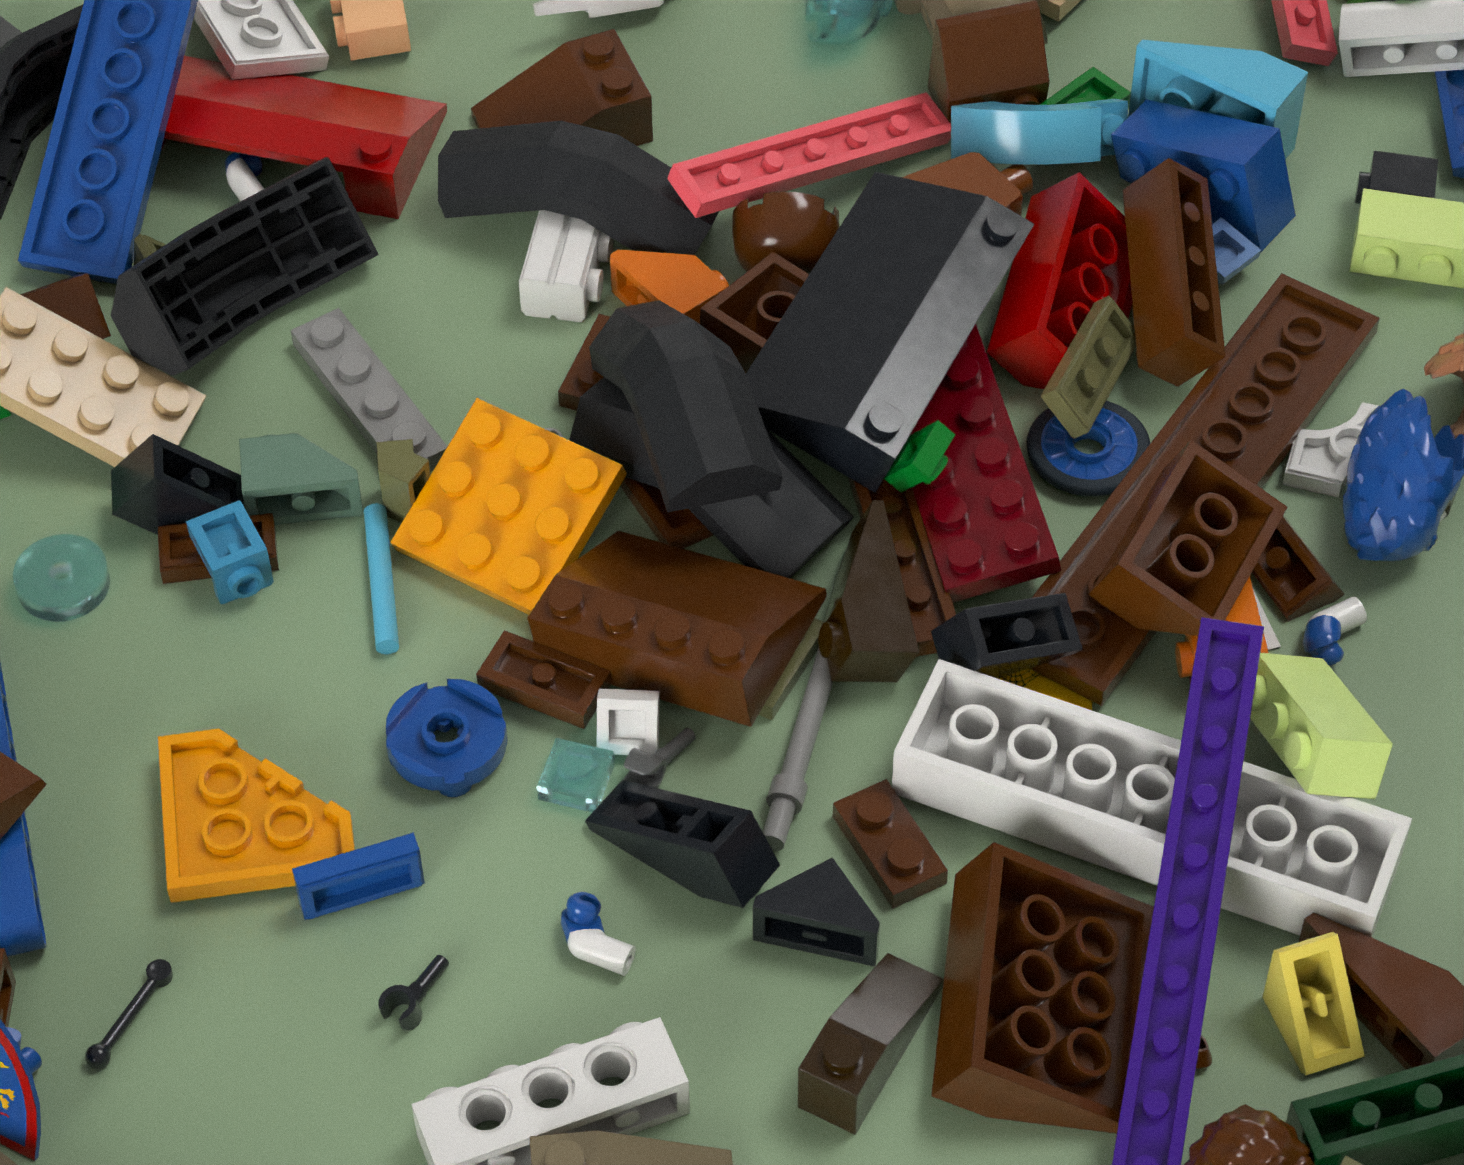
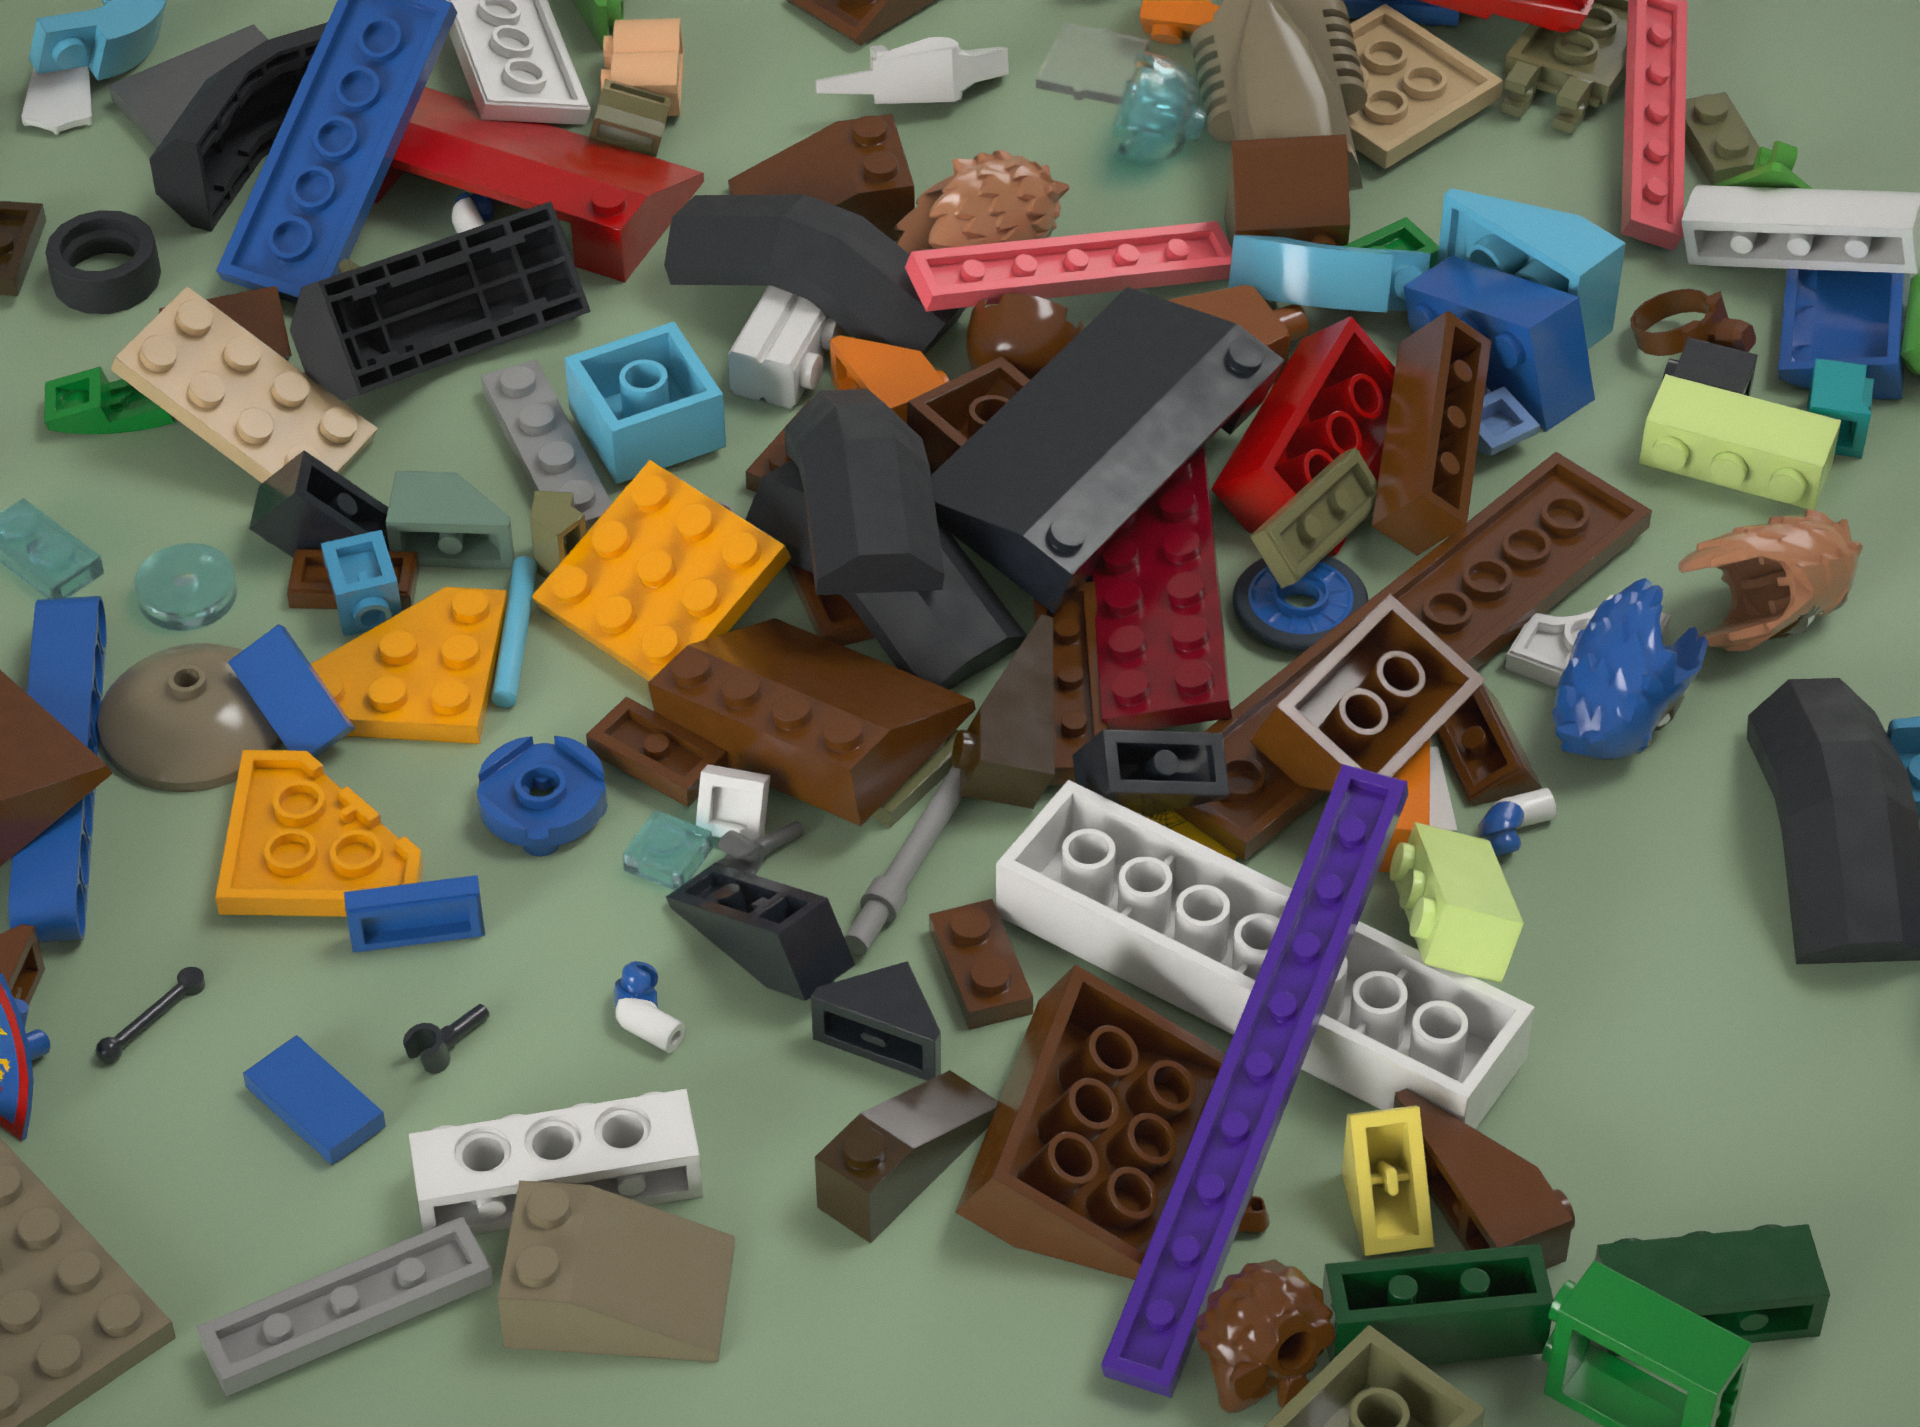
camera: 10 degrees right, 5 degrees down
(103, 727) = (182, 720): none -> dark tan dish
(191, 674) = (291, 693): none -> blue tile
(293, 635) = (422, 669): none -> light orange plate
(306, 1076) = (314, 1099): none -> blue tile
(369, 60) = (630, 117): none -> olive piece
(453, 338) = (645, 401): none -> medium azure brick
(716, 109) = (984, 203): none -> nougat head
(921, 457) = (1105, 580): green plate -> none
(1389, 139) = (1713, 328): none -> reddish brown piece

